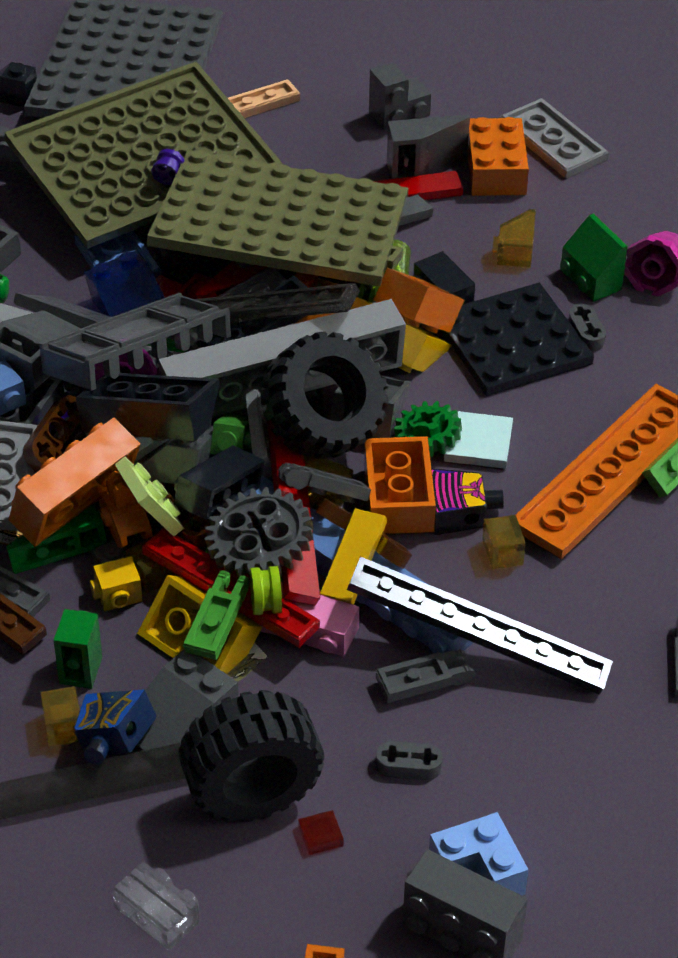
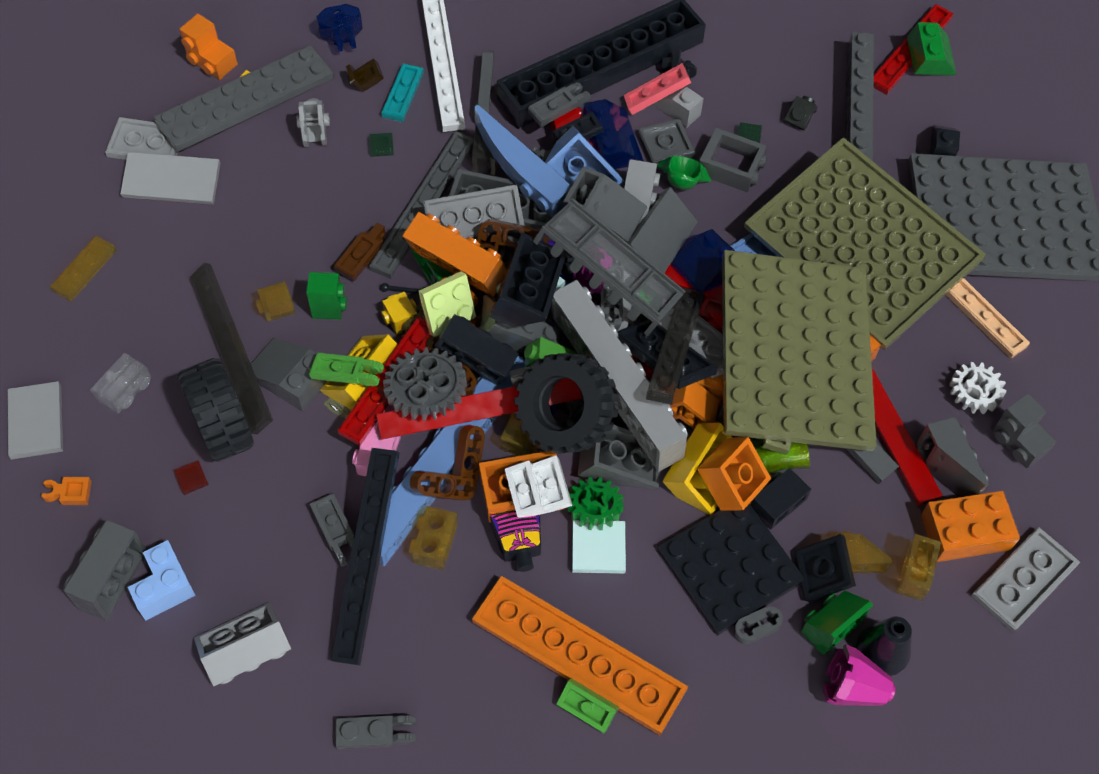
camera: 80 degrees right, 15 degrees up
(65, 603) = (386, 287): none -> black hinge
(113, 723) = (258, 327): dark blue torso -> none
(167, 166) = (838, 255): dark purple wheel -> none
(265, 590) = (366, 394): lime wheel -> none
(321, 482) = (495, 423): dark grey hinge -> none
(336, 122) = (977, 388): none -> white gear
(359, 540) = (430, 457): yellow tile -> none
(409, 760) = (251, 527): dark grey beam -> none
(415, 452) = (538, 487): none -> white slope
(454, 572) = (438, 538): none -> clear yellow brick
(503, 542) = (476, 573): clear yellow brick -> none
(533, 259) = (825, 568): none -> black tile
(541, 192) = (918, 567): none -> clear yellow brick
(572, 776) = (241, 644): none -> light grey slope
(625, 215) = (887, 644): none -> black cone

